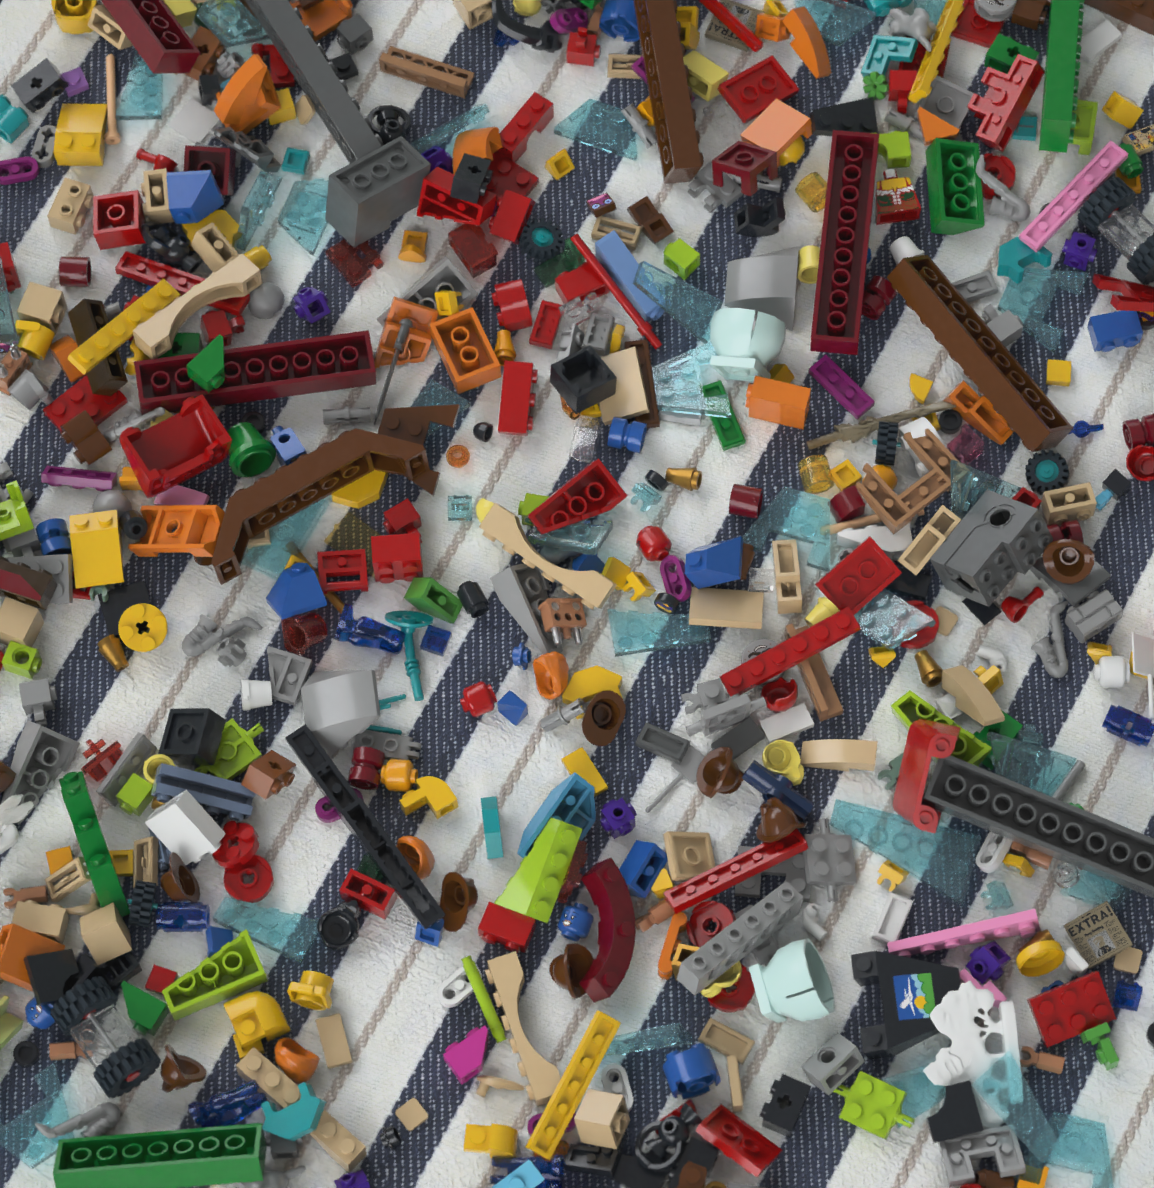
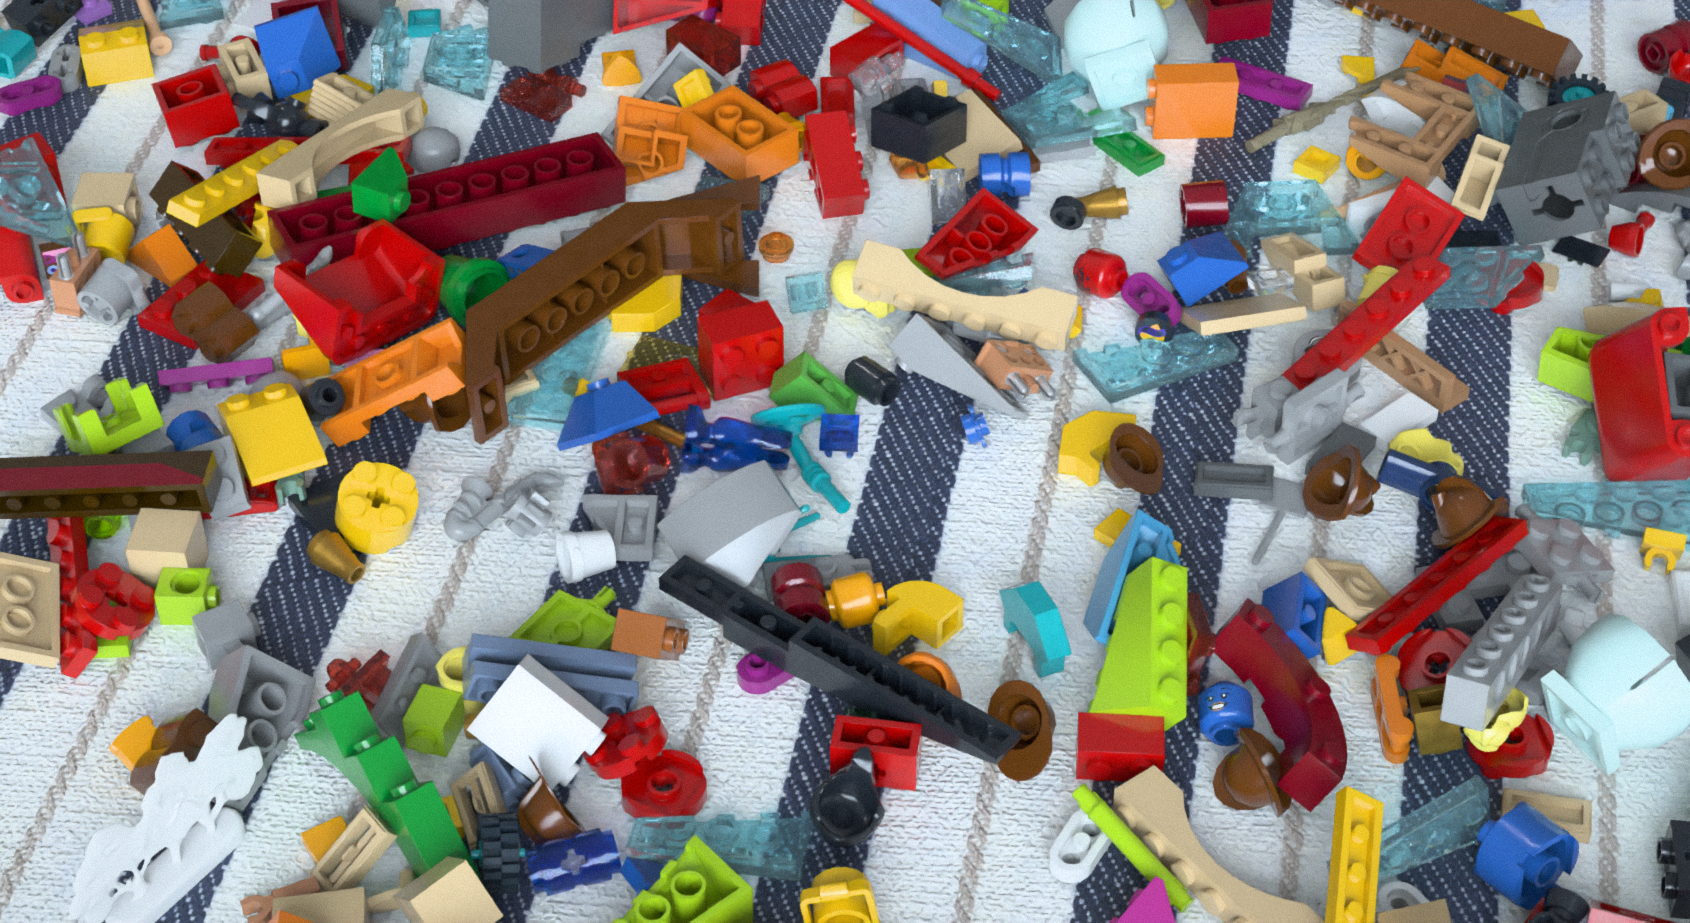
camera: 20 degrees left, 25 degrees down
(70, 206) = (119, 111): tan brick -> none
(75, 271) = (146, 163): dark red piece -> none
(192, 736) = (506, 604): black container -> none
(311, 304) = (502, 133): dark purple brick -> none
(405, 324) = (647, 120): dark grey sword -> none
(432, 934) = (996, 783): blue tile -> none
(478, 699) = (935, 484): red head -> none
(483, 431) = (800, 214): black hinge -> none
(512, 708) = (991, 486): blue slope -> none
(540, 240) = (791, 26): black wheel -> none
(551, 674) = (1030, 433): orange hair -> none
(563, 715) = (1073, 473): light grey axle -> none
(565, 261) = (841, 24): clear green bracket -> none
(618, 825) = (1220, 573): dark purple brick -> none
(639, 584) = (1105, 317): yellow tile -> none
(646, 494) = (1061, 227): clear light blue tile -> none
(655, 915) = (1348, 673): nougat bar -> none
(734, 1084) = (1600, 863): tan tile -> none
(780, 694) = (1380, 387): red hair -> none
(815, 474) = (1280, 159): clear yellow piece -> none
(839, 754) = (1503, 429): tan slope -> none
(847, 505) = (1343, 181): dark red brick -> none
(882, 655) = (1485, 323): yellow slope -> none
(886, 443) = (1355, 100): black wheel -> none
(928, 668) = (1552, 316): pearl gold cone -> none
(1082, 428) = (1591, 63): clear blue piece -> none

